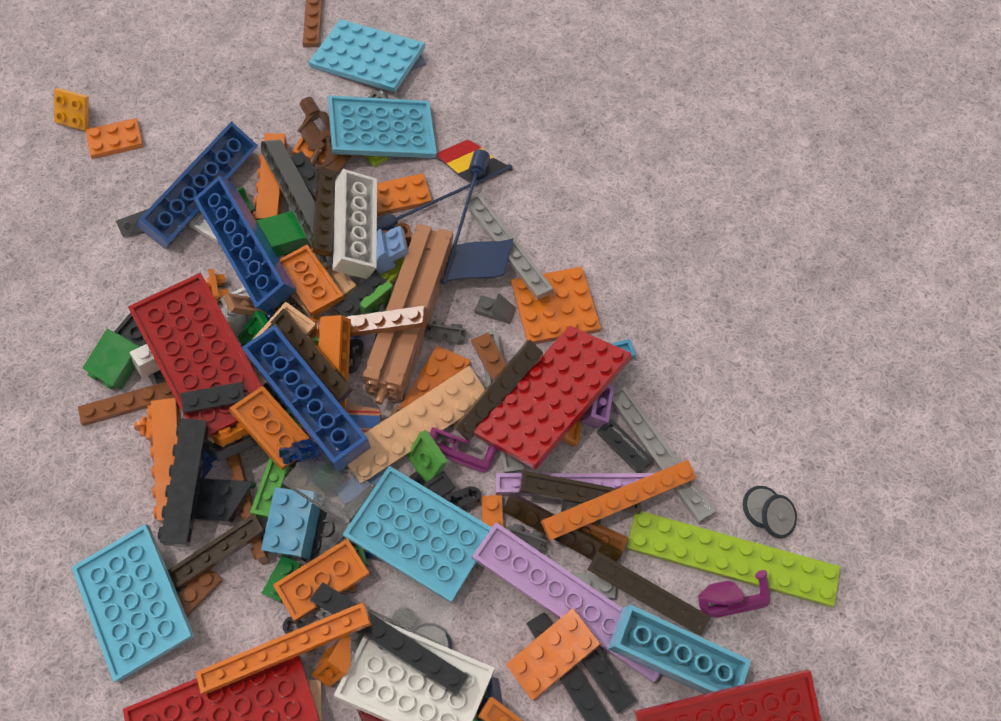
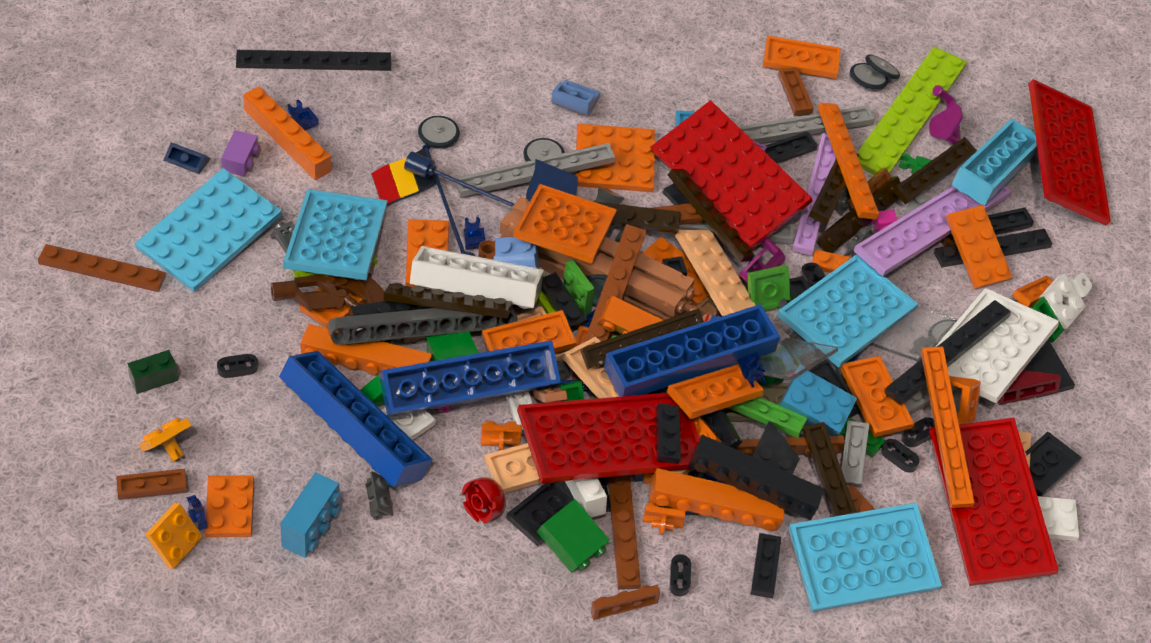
camera: 80 degrees left, 10 degrees down
(60, 413) = (625, 601): none -> dark orange plate
(96, 117) = (196, 512): none -> clear blue plate
(97, 452) = (685, 575): none -> black beam
(101, 180) = (310, 515): none -> dark azure brick
(115, 518) = (766, 565): none -> black plate
(122, 89) = (151, 484): none -> dark orange plate
(141, 287) = (483, 494): none -> red cylinder
(158, 81) = (166, 438): none -> light orange plate
(220, 60) = (152, 371): none -> dark green brick
(241, 108) = (237, 365): none -> black beam
(251, 572) = (855, 452): none -> light grey plate
(263, 616) = (900, 455): none -> black beam
(421, 218) = (473, 234): none -> clear blue plate
(423, 266) = (565, 223): none -> orange plate
(426, 373) = (676, 263): none -> black plate
(438, 25) = (186, 158): none -> dark blue slope
(450, 51) = (240, 153): none -> medium lavender brick
(474, 322) = (645, 217): none -> dark brown plate
(481, 73) = (287, 133): none -> orange brick
(505, 80) = (303, 117): none -> clear blue plate
(529, 170) = (438, 131): none -> light grey wheel
(538, 248) = (542, 148): none -> light grey wheel
(558, 553) = (883, 220): none -> dark pink plate
(575, 73) = (313, 60): none -> black plate
(610, 256) = (575, 97): none -> medium blue brick
(657, 576) = (914, 164): none -> green plate
(706, 439) = (795, 91): none -> dark orange plate
(757, 437) = (805, 56): none -> orange plate

